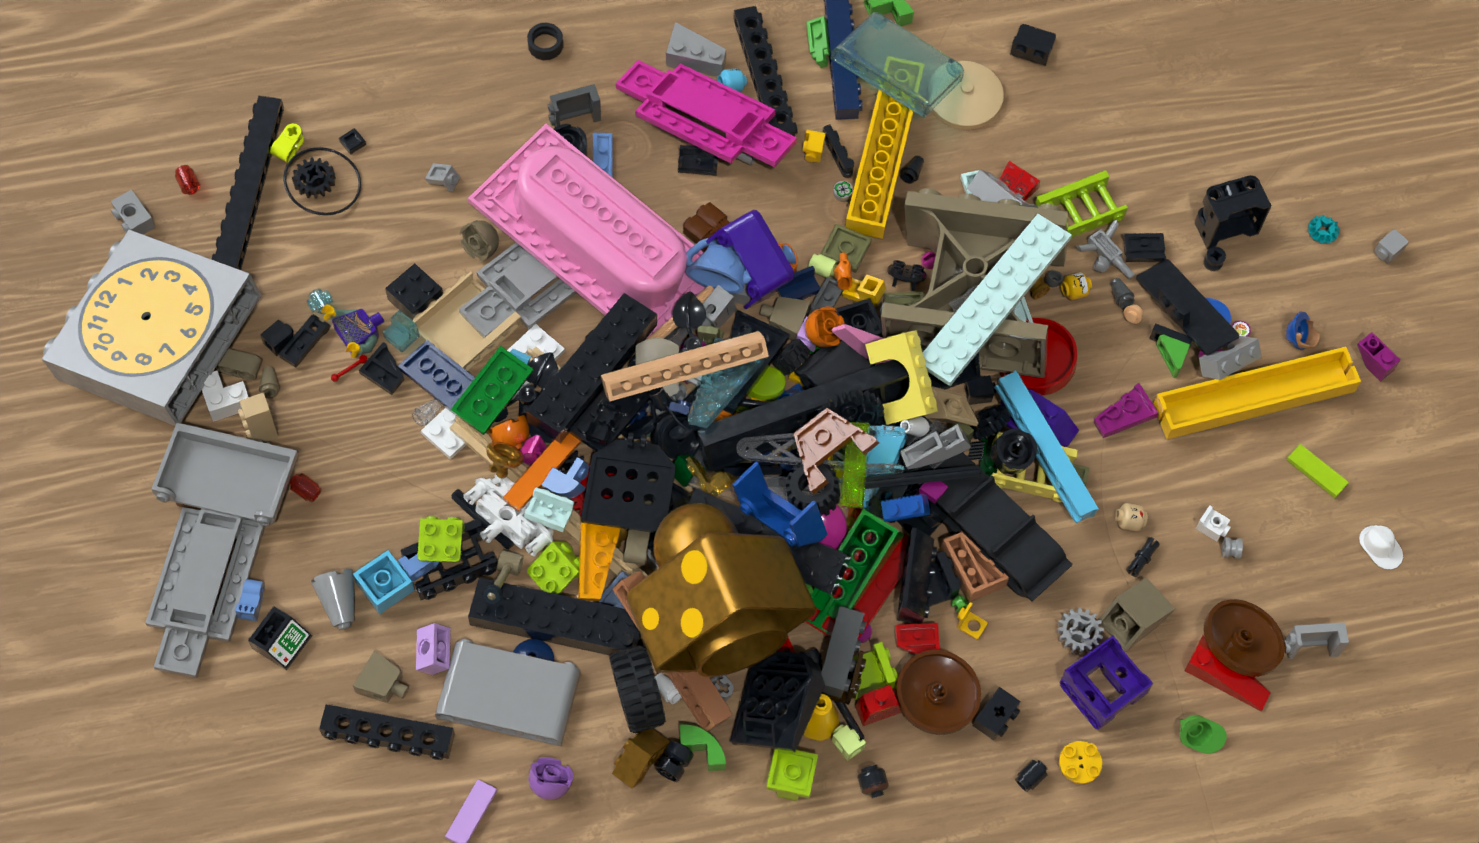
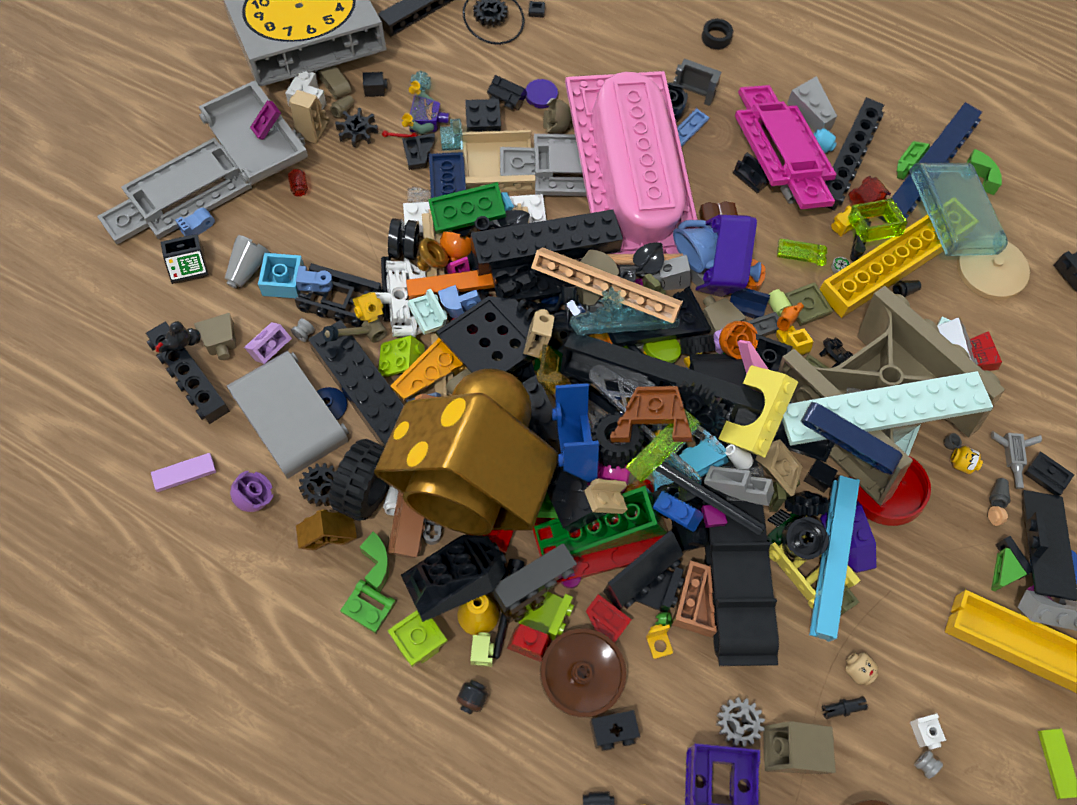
camera: 40 degrees right, 0 degrees up
(229, 452) = (265, 120): none -> magenta plate
(301, 398) = (357, 127): none -> black gear
(304, 340) = (388, 98): black plate -> none
(359, 707) = (178, 338): none -> black animal
(411, 250) = (507, 92): none -> black brick
(440, 225) = (540, 92): none -> dark purple tile
(440, 539) = (337, 273): lime bracket -> none
(443, 175) = (572, 65): light grey bracket -> none
(449, 614) = (302, 330): none -> light grey wheel
(460, 462) = (403, 239): none -> black wheel
(494, 546) = (368, 307): none -> yellow brick
(603, 720) = (315, 478): none -> black gear
(670, 452) = (541, 325): none -> tan torso
(677, 755) = (353, 554): black wheel -> none
(701, 370) = (615, 295): none -> clear light blue gear
(728, 793) = (365, 613): none -> bright green plate
(801, 203) = (802, 251): none -> clear neon green plate
(816, 107) = (870, 191): none -> clear red brick
(844, 542) = (606, 496): none -> tan bracket
(851, 113) = (886, 208): none -> clear neon green window
(992, 344) = (851, 438): none -> dark blue beam
(1039, 288) = (934, 437): pearl gold wheel -> none
(1082, 189) = (1031, 394): lime fence -> none
(1101, 264) = (1001, 460): light grey hinge -> none
(1126, 413) = (930, 586): magenta wing -> none

